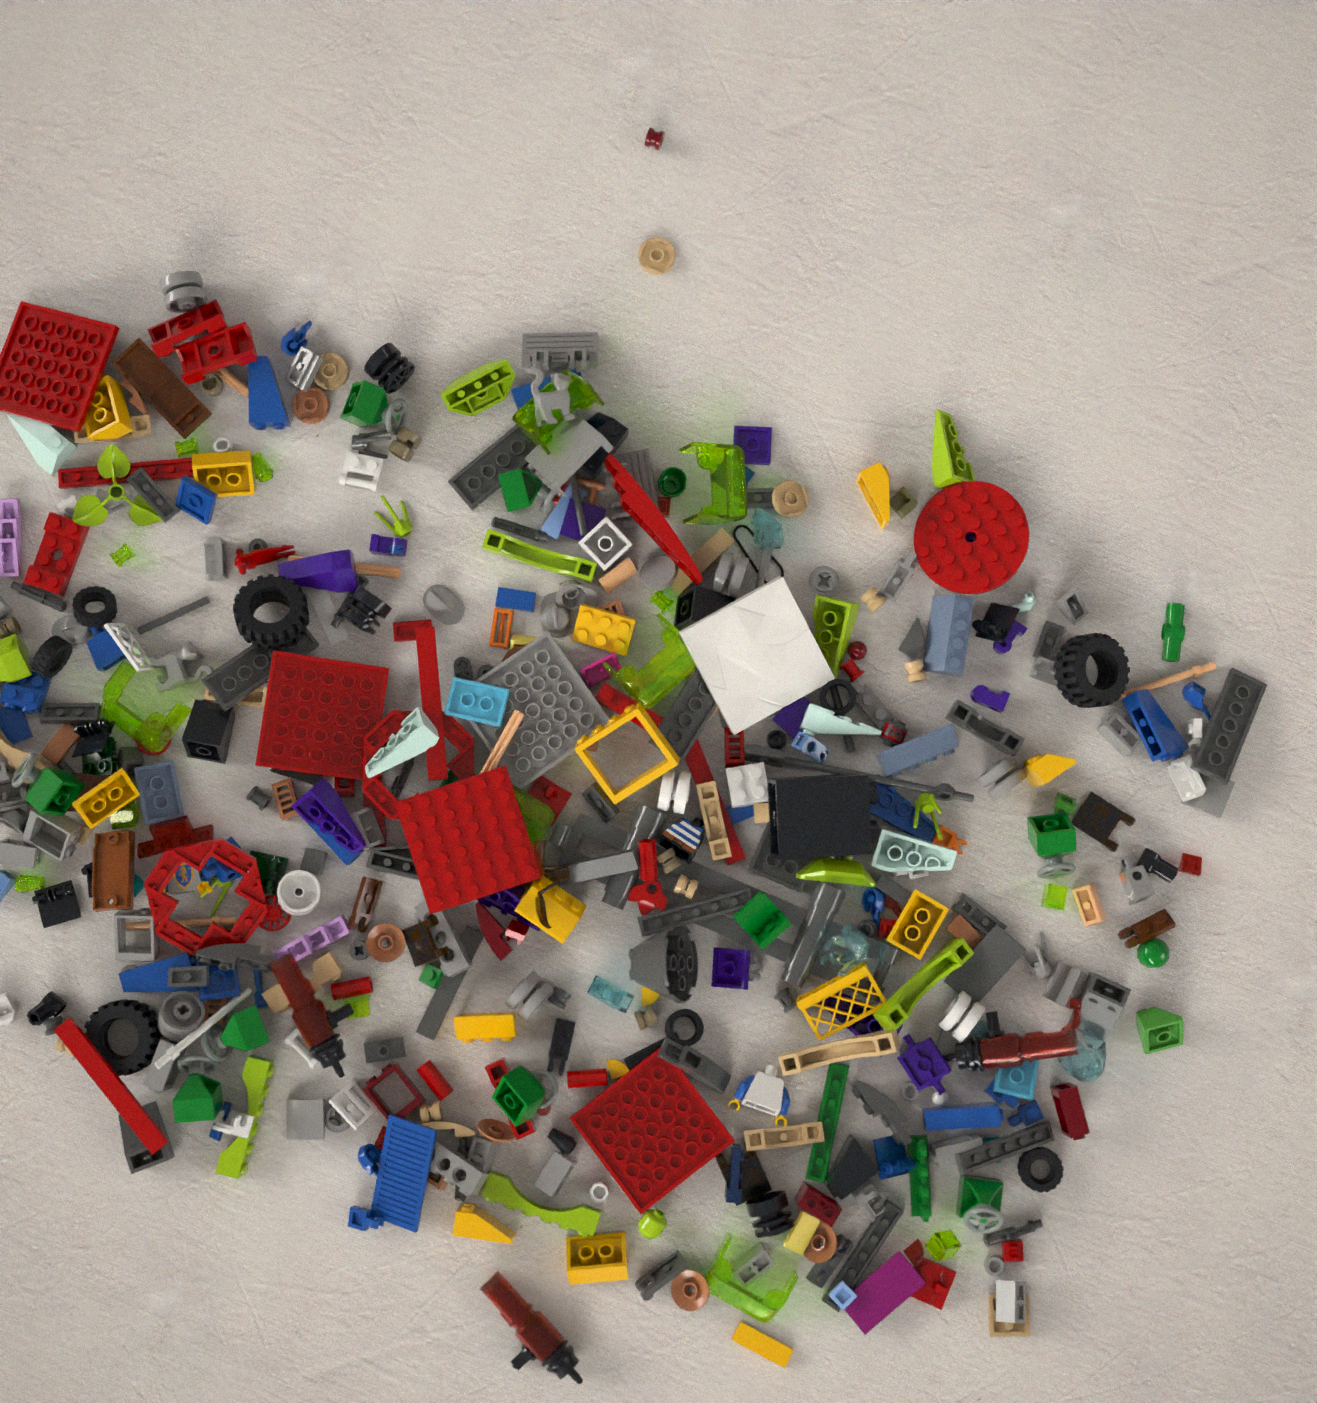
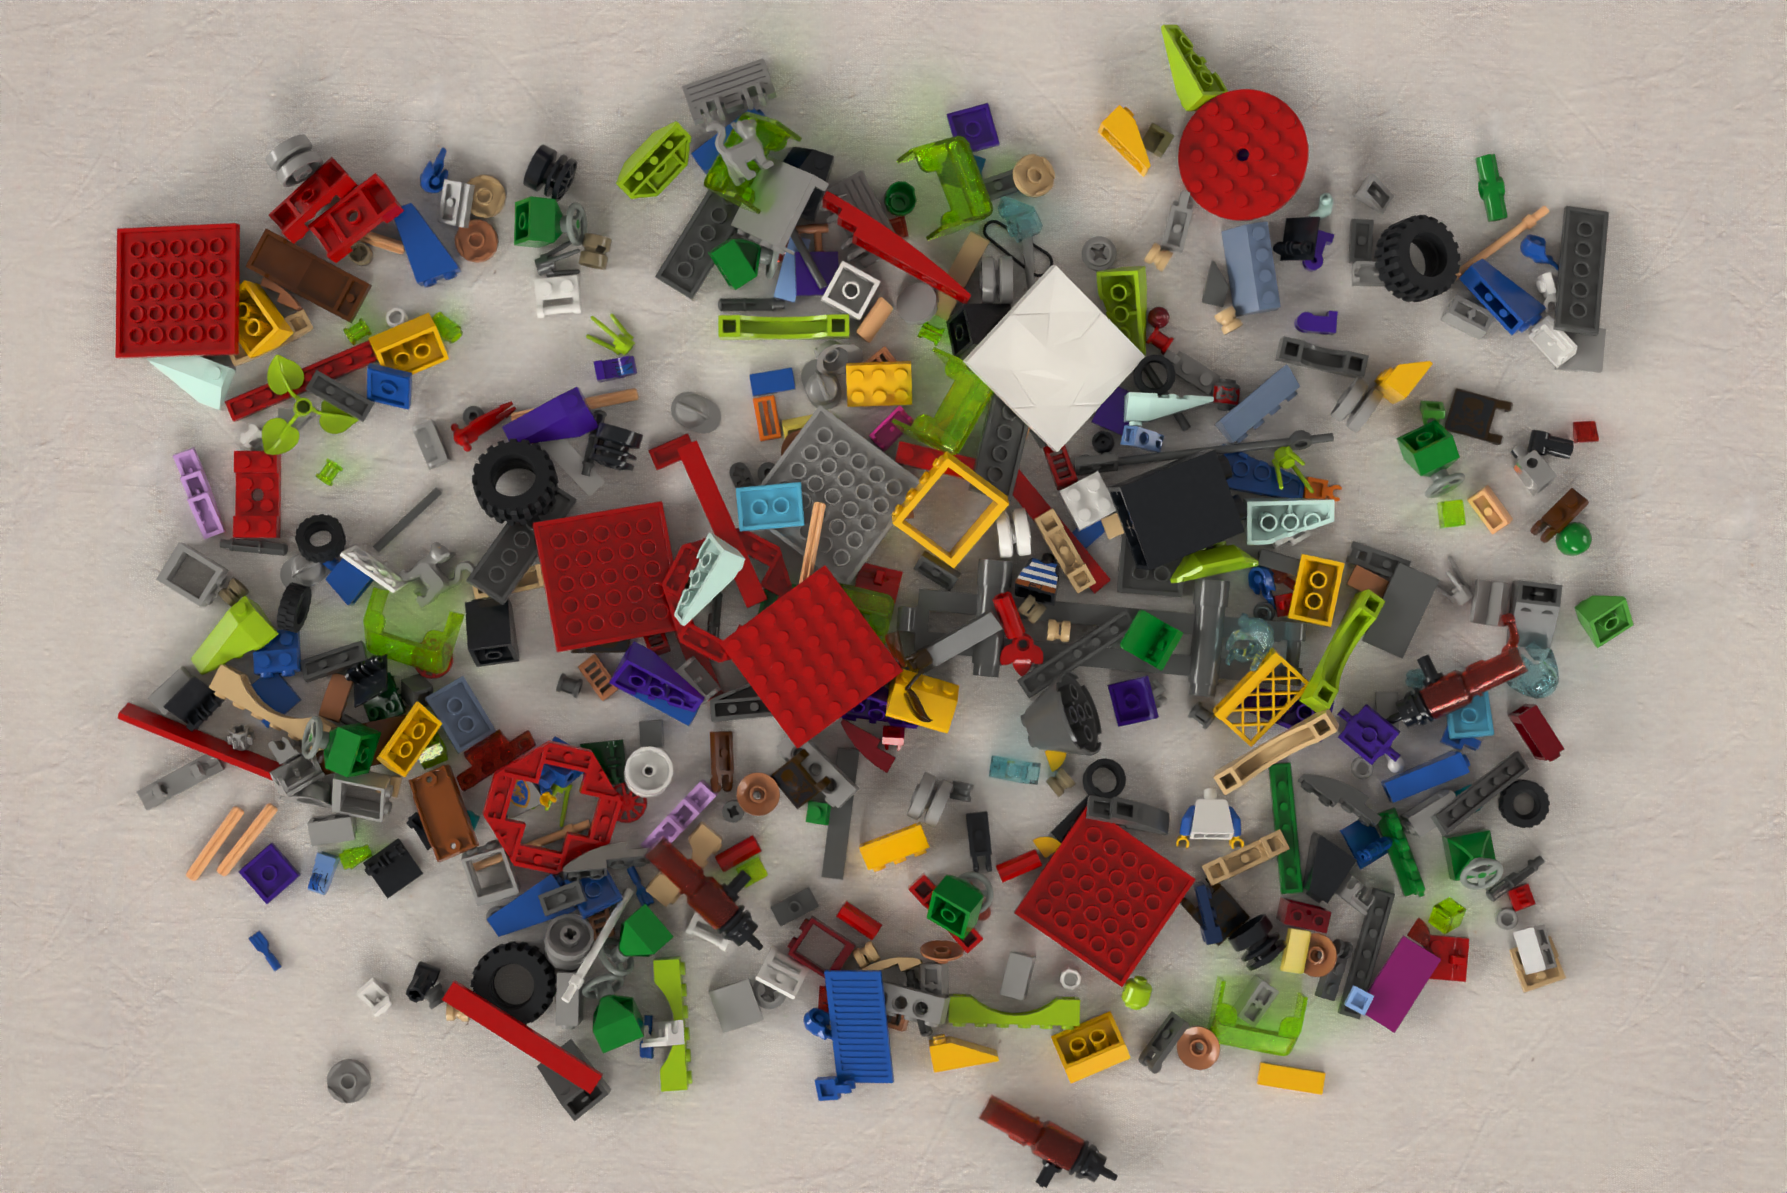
camera: 20 degrees left, 5 degrees up
(562, 1141) = (1015, 939): black cone -> none
(958, 1014) = (1393, 672): white wheel -> none
(1028, 1114) = (1493, 751): blue plate -> none

